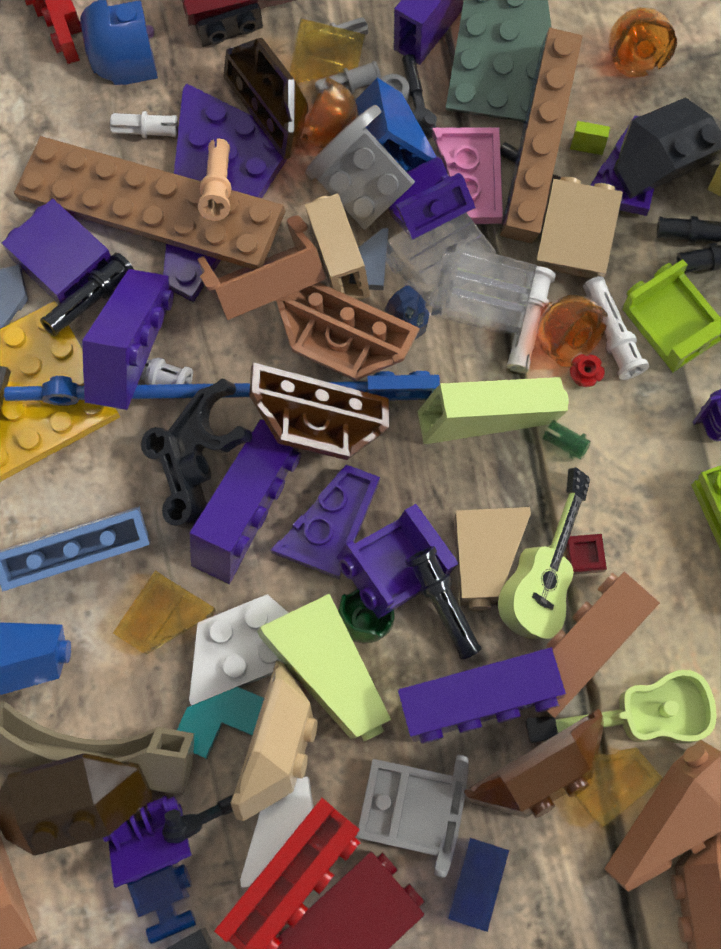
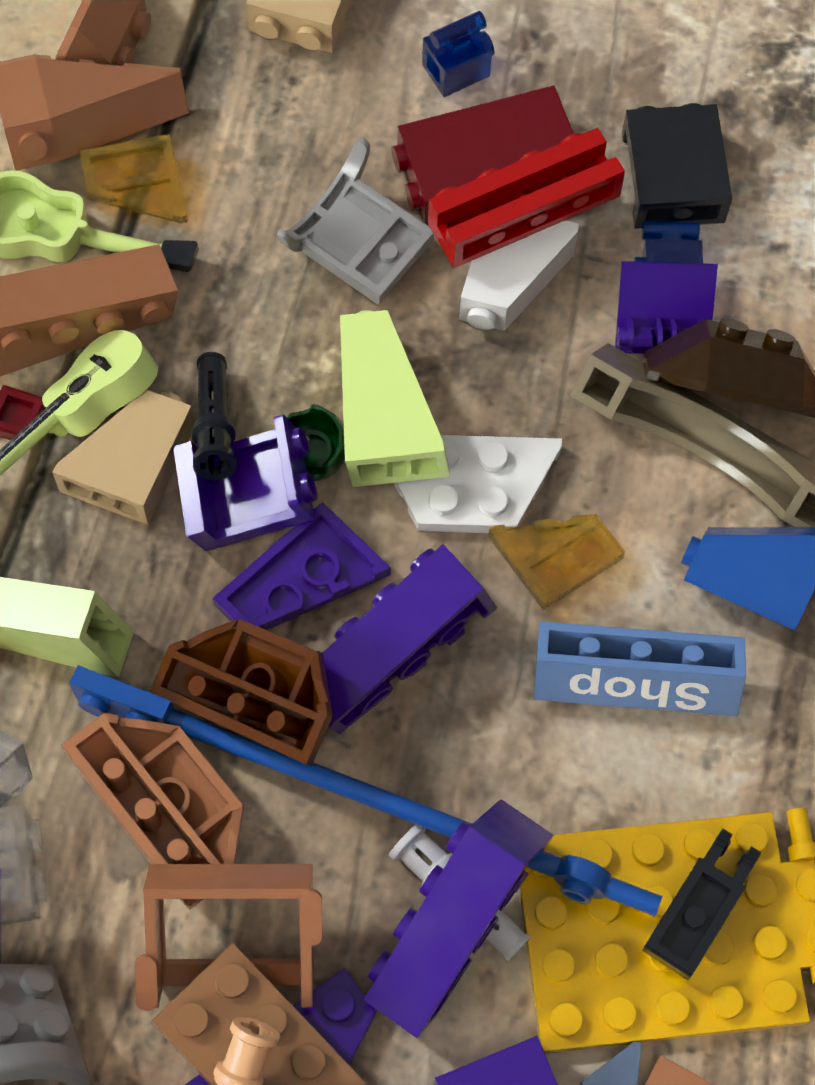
camera: 160 degrees left, 5 degrees down
(99, 282) = (468, 1037): black pin -> none
(180, 828) = (613, 307): black piece -> none
(182, 455) = (451, 727): black piece -> none
(233, 708) = (508, 414): teal tile -> none
(276, 747) = (479, 336): tan wedge -> none
(337, 246) = (108, 922): tan brick -> none
(373, 256) = (70, 914): sand blue tile -> none
(409, 307) = (61, 800): dark blue rock -> none
(477, 884) = (324, 138): clear blue brick -> none
(481, 695) = (230, 285): dark purple wedge -> none
(543, 773) = (200, 202): reddish brown wedge -> none

